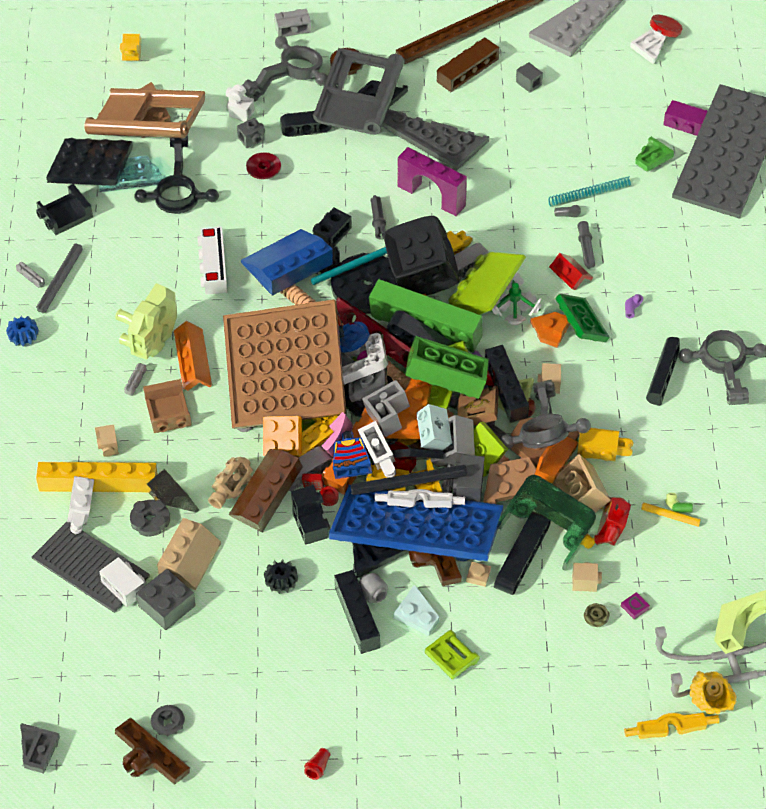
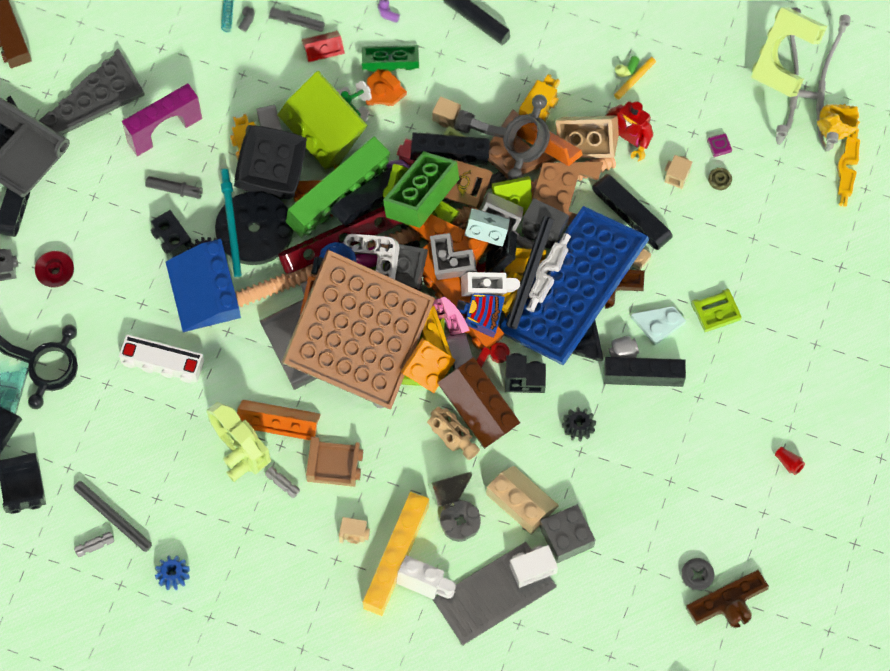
camera: 70 degrees left, 15 degrees up
(556, 506) = (630, 151): clear green windscreen -> none

